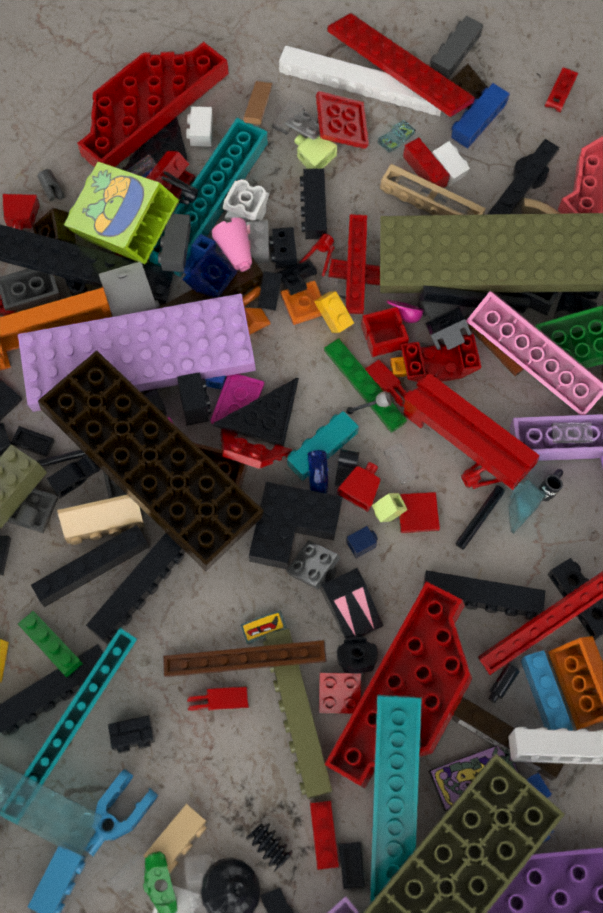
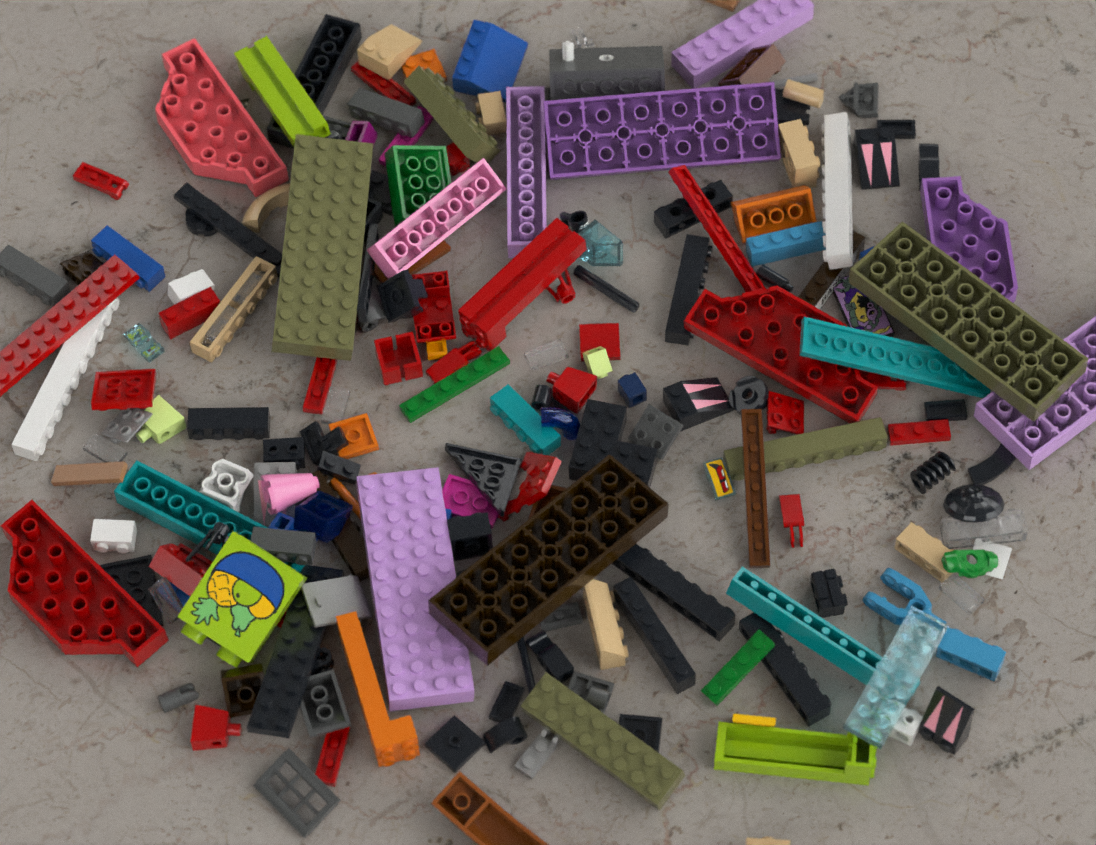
camera: 85 degrees left, 10 degrees down
(324, 244) = (284, 414): red plant -> none
(334, 312) = (373, 402): yellow brick -> none
(356, 264) = (314, 380): red plate -> none
(382, 400) = (478, 362): hinge -> none
(408, 312) = (374, 332): dark pink cap -> none
(572, 432) = (527, 195): clear tile -> none

